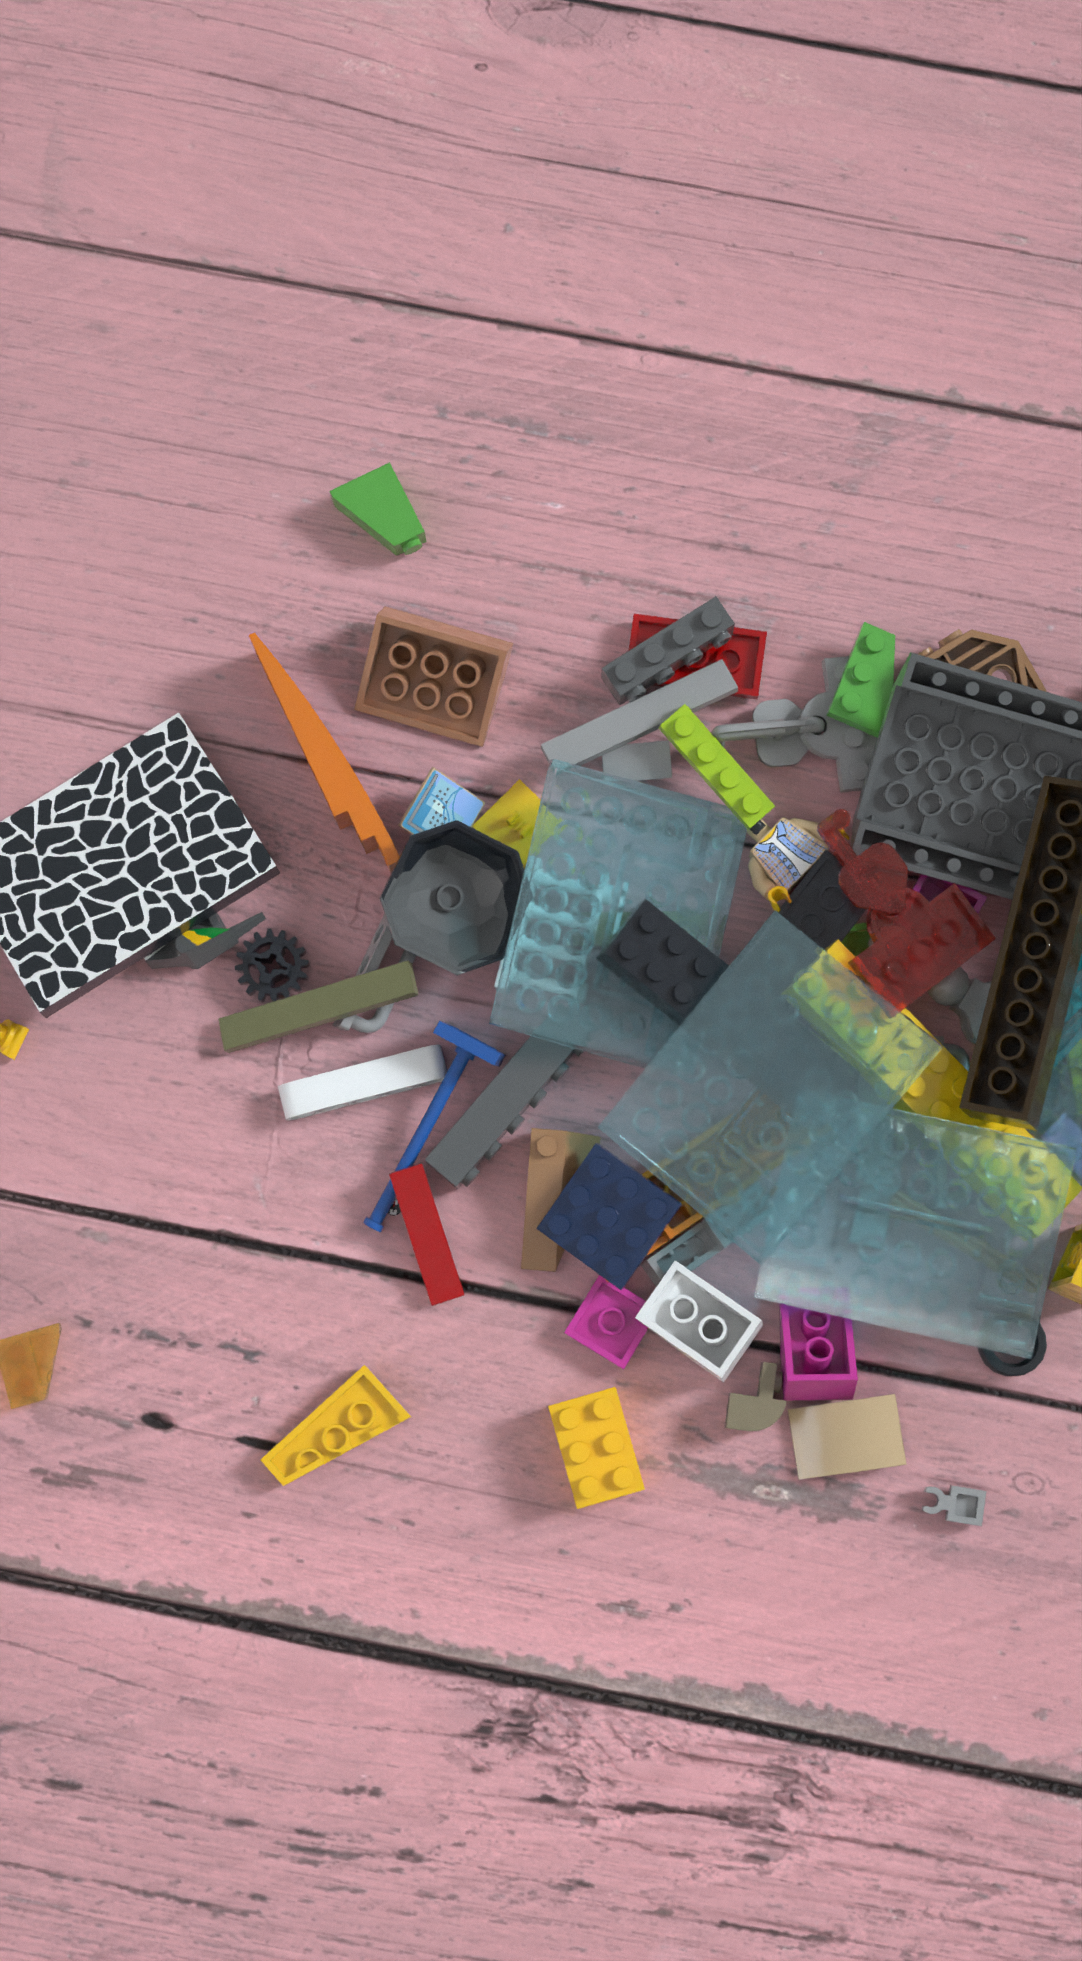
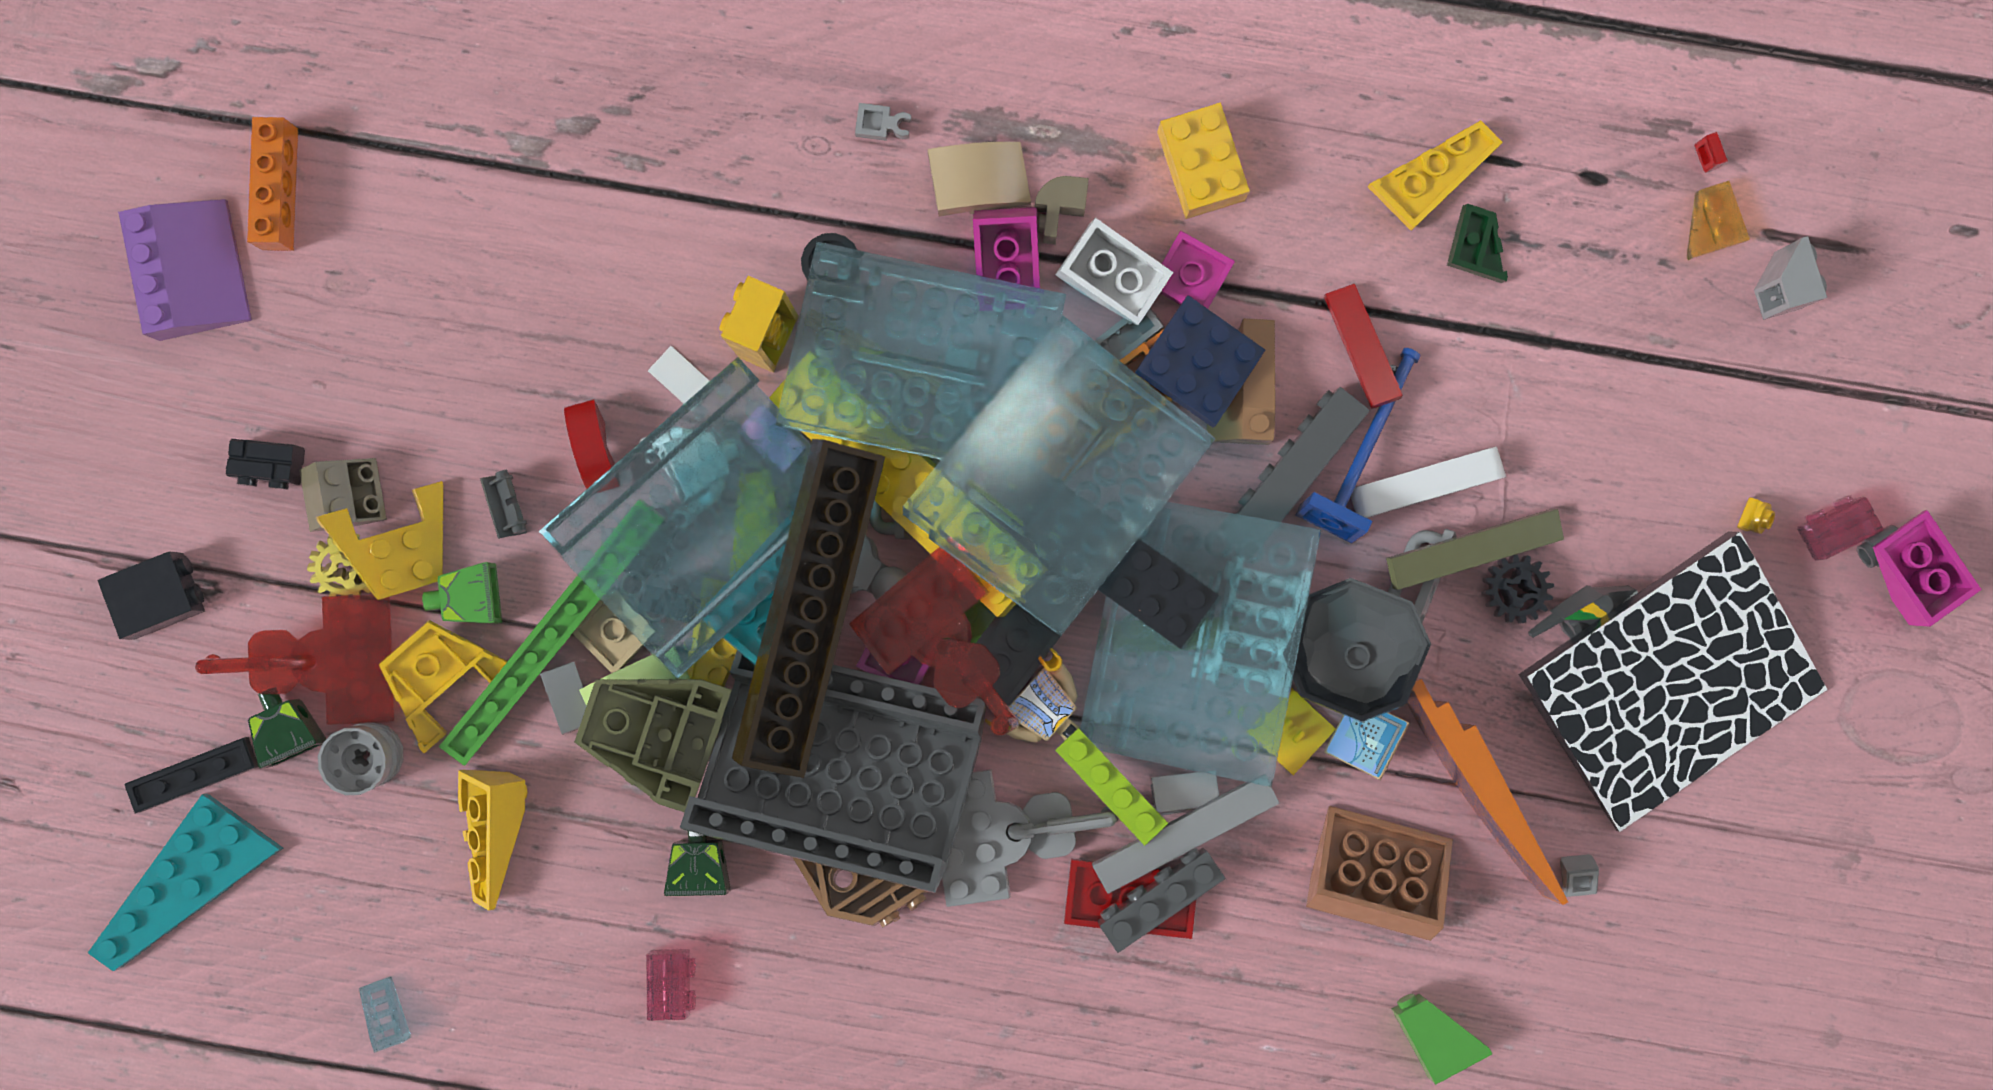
camera: 175 degrees right, 5 degrees up
(28, 1442) = (1710, 152): none -> red tile
(223, 670) = (1579, 875): none -> light grey slope
(293, 1345) = (1477, 244): none -> dark green wing
(866, 681) = (970, 876): bright green wing -> none

